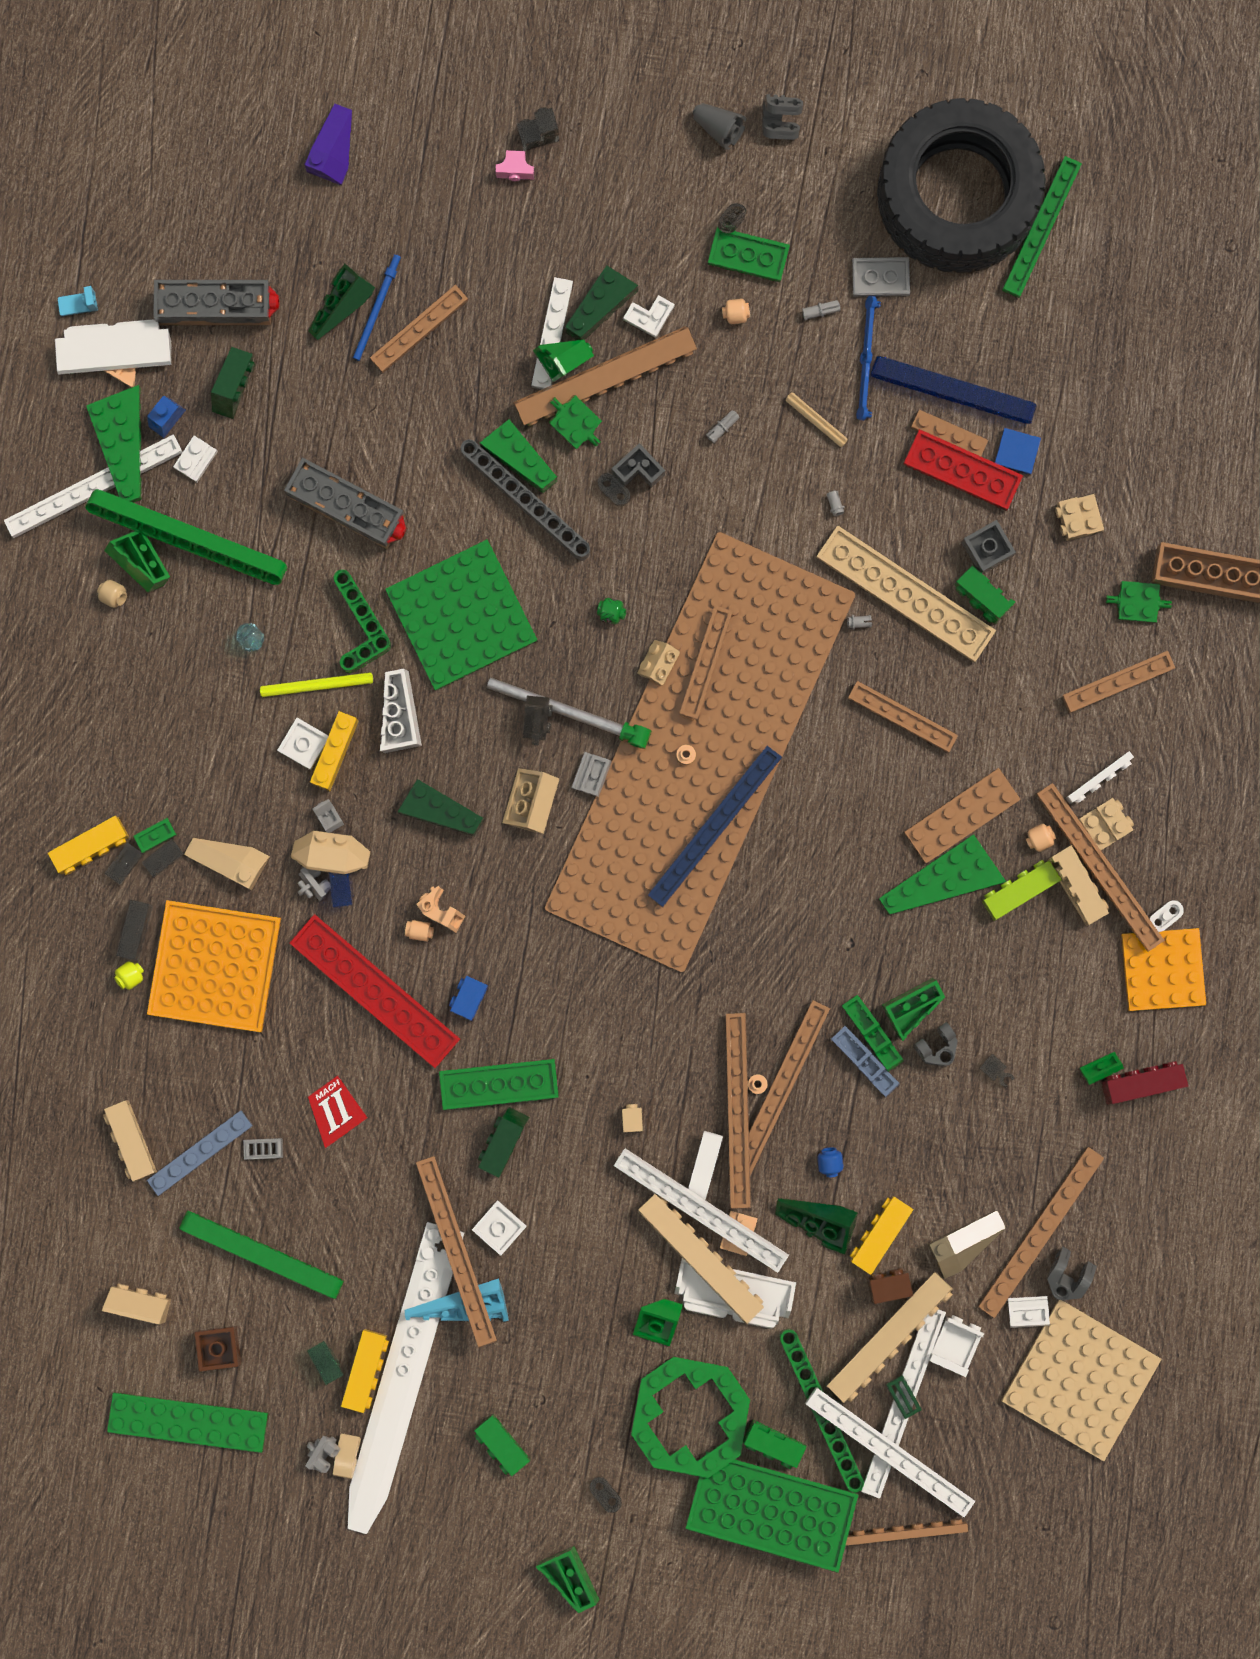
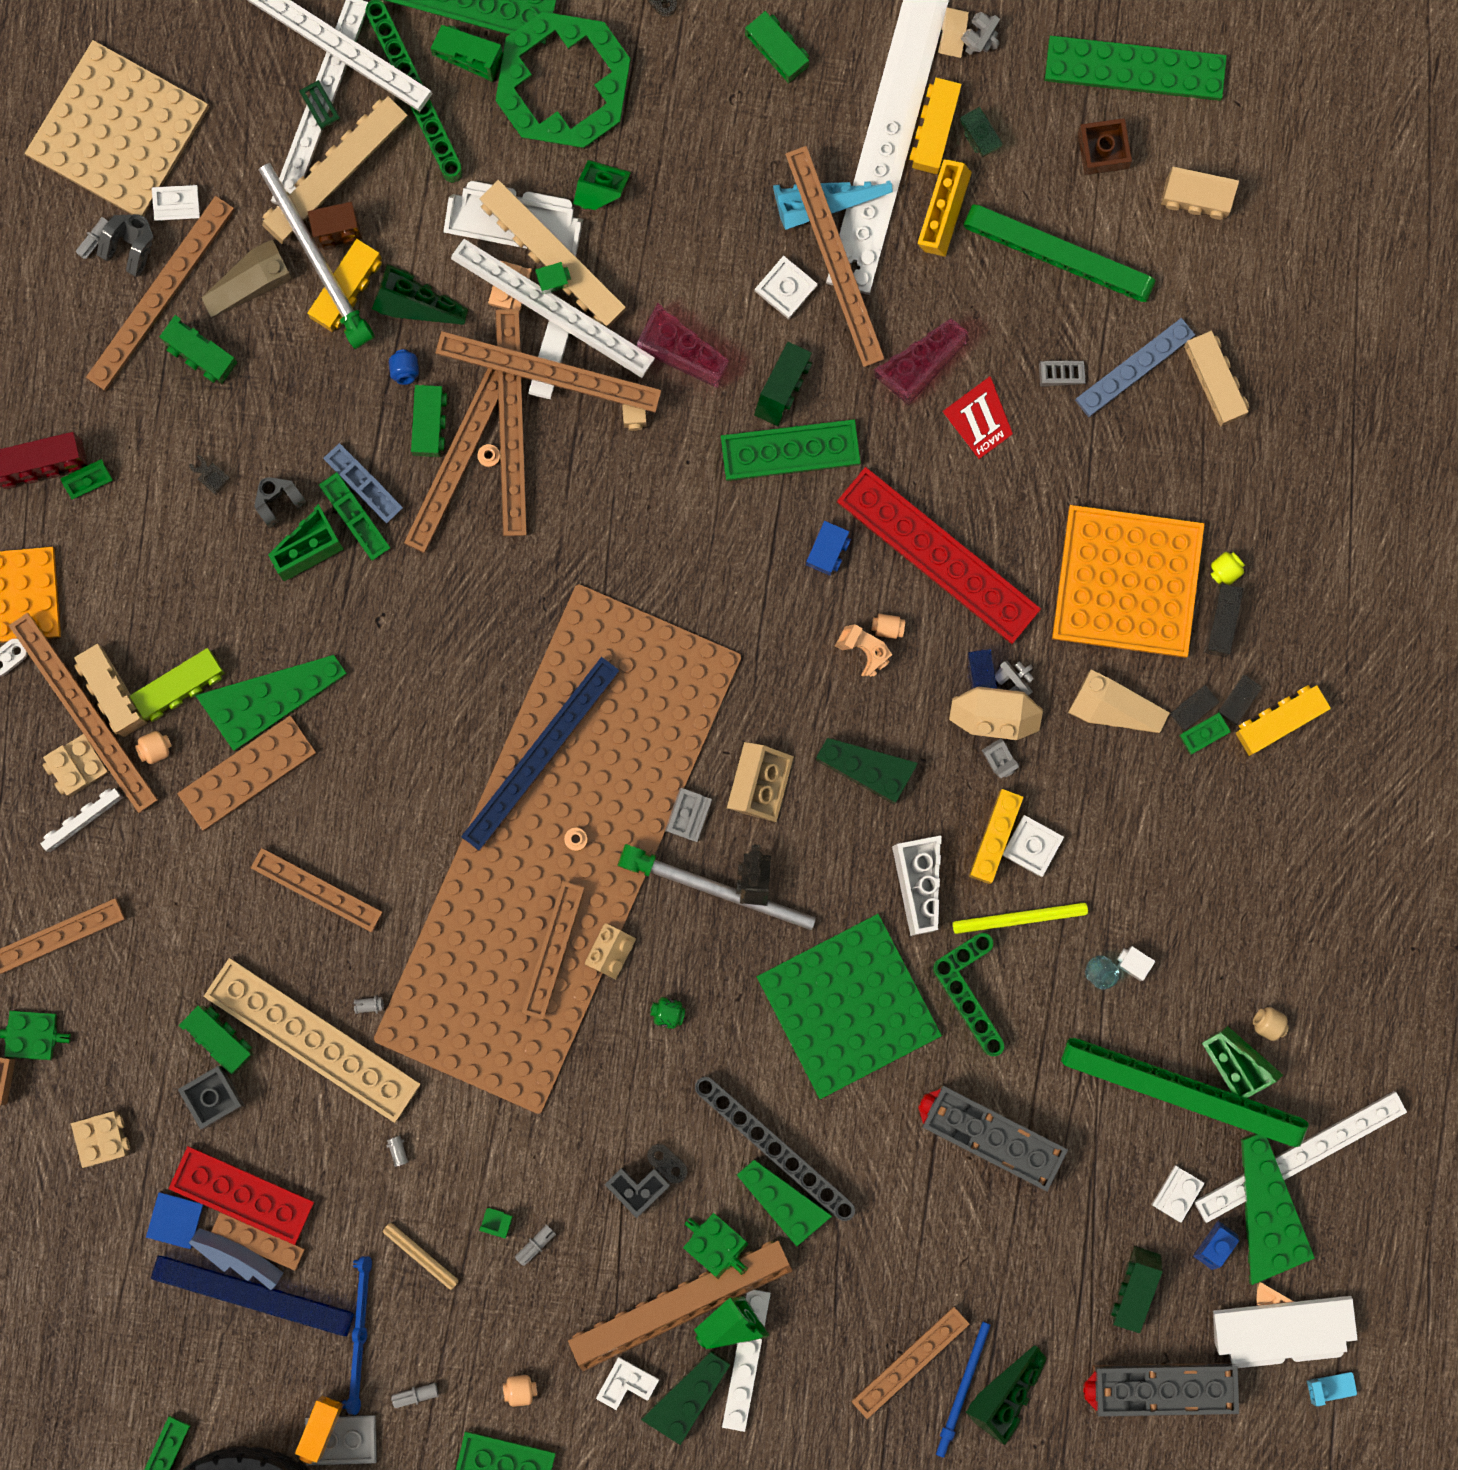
camera: 175 degrees right, 0 degrees up
(222, 645) = (1135, 963): none -> white brick
(359, 1295) = (944, 207): none -> yellow brick
(386, 1156) = (919, 364): none -> clear pink wedge
(591, 1174) = (681, 348): none -> clear pink wedge
(700, 1234) = (553, 277): none -> green brick
(705, 1151) = (548, 372): none -> medium nougat plate
(754, 444) = (496, 1223): none -> green panel
(808, 1114) = (428, 421): none -> green brick
(869, 1192) = (357, 329): none -> flat silver piece
(897, 281) = (318, 1429): none -> light orange brick
(956, 1345) = (257, 152): white panel -> none
(969, 421) = (228, 1254): none -> sand blue slope
(1007, 1178) = (197, 351): none -> green wedge
(1100, 1281) = (91, 240): none -> light grey axle

